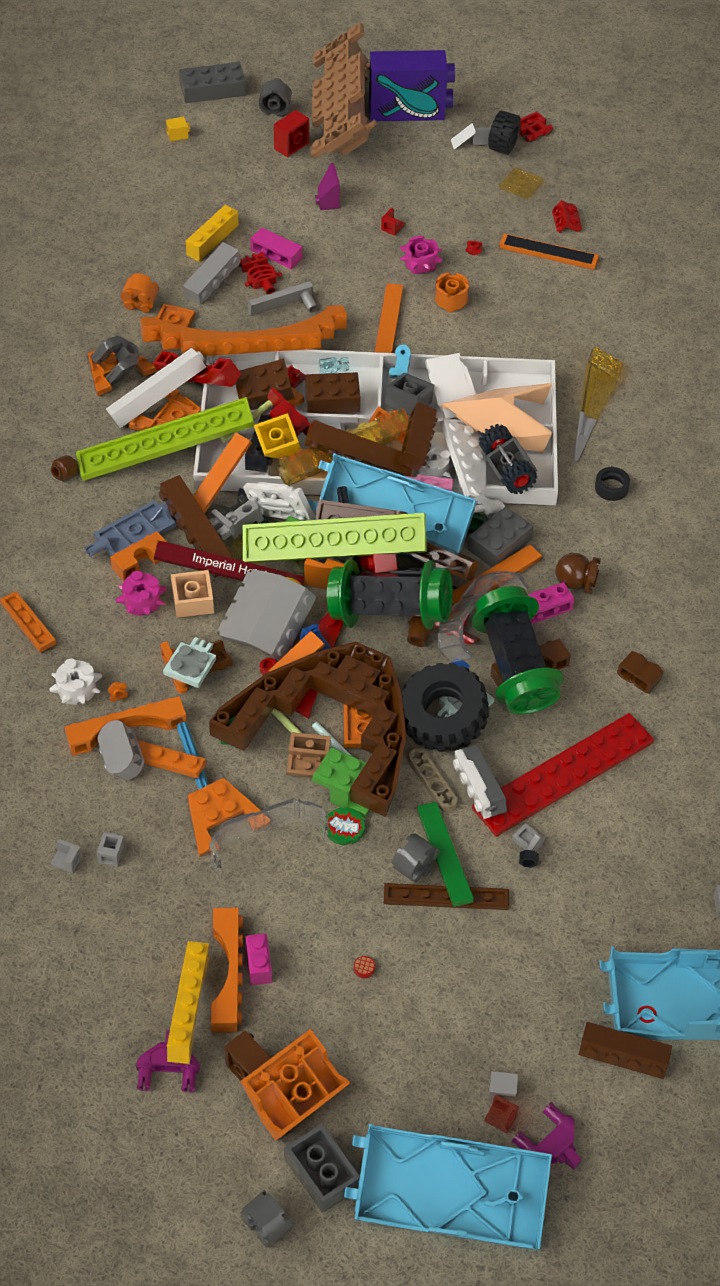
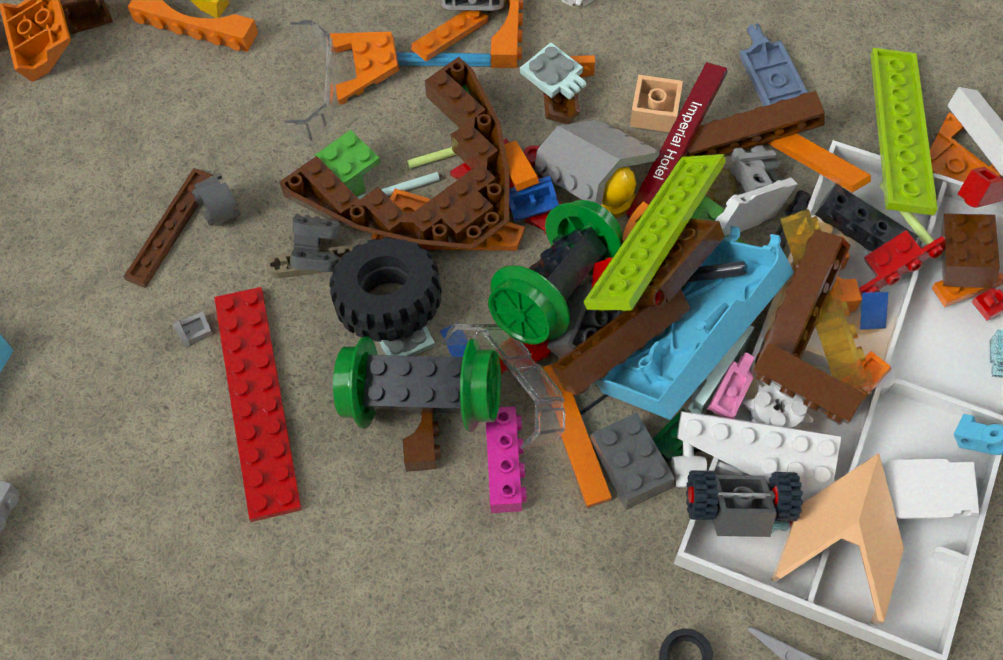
camera: 115 degrees right, 10 degrees up
(64, 468) = (891, 36): reddish brown head -> none
(117, 691) = (553, 15): orange plate -> none
(126, 560) = (742, 89): orange arch -> none
(141, 593) = (676, 59): dark pink brick -> none
(258, 959) = (186, 45): dark pink brick -> none
(277, 437) = (855, 220): yellow slope -> none
(306, 753) = (395, 149): medium nougat brick -> none
(332, 393) = (943, 334): reddish brown brick -> none
(345, 826) = (293, 158): tile -> none
(349, 423) = (879, 338): light grey tile -> none
(364, 967) = (135, 131): tile -> none
(407, 391) = (913, 422): dark grey brick -> none
(427, 774) = (307, 241): none -> dark grey piece
(447, 859) = (214, 237): green tile -> none
(479, 781) = (276, 295): piece -> none
(528, 858) = (165, 315): black tile -> none
(577, 571) = (533, 527): reddish brown tile -> none
(640, 672) = (351, 546): reddish brown brick -> none

